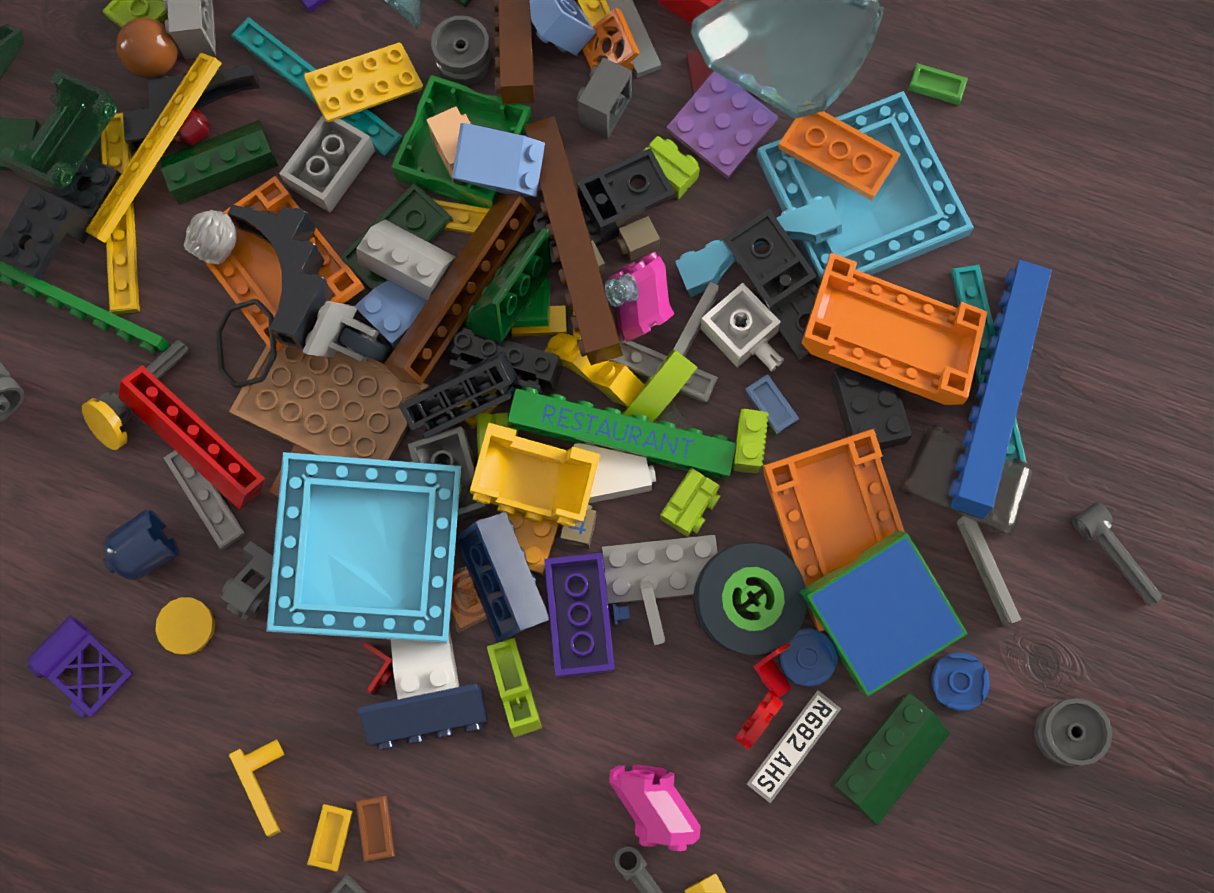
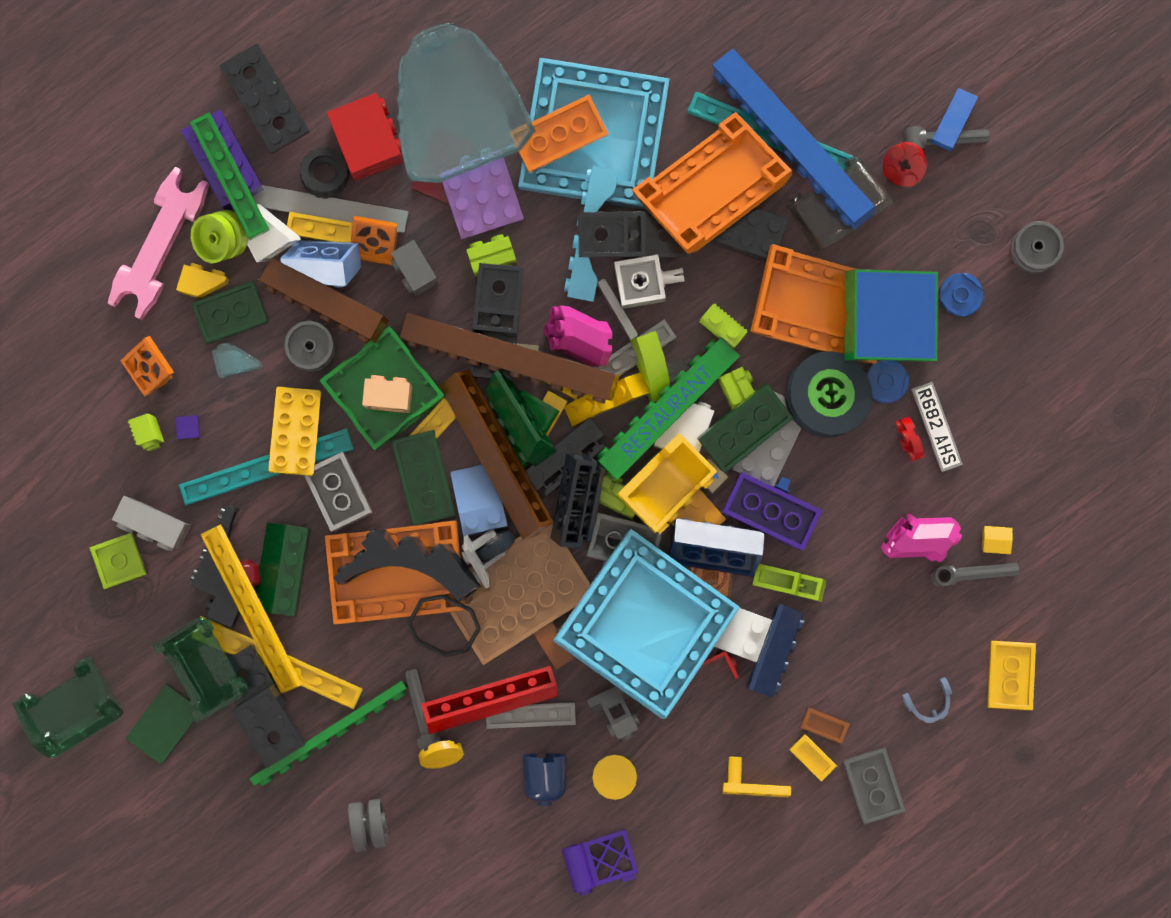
camera: 65 degrees left, 10 degrees up
(146, 48) = (165, 572): dark orange piece -> none
(211, 236) = (348, 606): light grey hair -> none
(403, 258) = (450, 479): light grey slope -> none
(498, 160) = (425, 373): medium blue slope -> none
(621, 290) = (573, 347): clear light blue wheel -> none
(638, 239) = (532, 311): dark tan brick -> none
(652, 612) = (798, 463): light grey tile -> none
(654, 529) = (745, 428): none -> dark green tile
(769, 399) = (704, 295): medium blue tile -> none
(771, 675) = (884, 412): red bracket -> none
(891, 758) = (981, 370): dark green slope -> none
(938, 84) = (545, 27): bright green tile -> none
(988, 571) = (906, 229): light grey tile -> none
(1068, 512) = (908, 176): none -> red plate
(1146, 551) = (954, 119): none -> tile

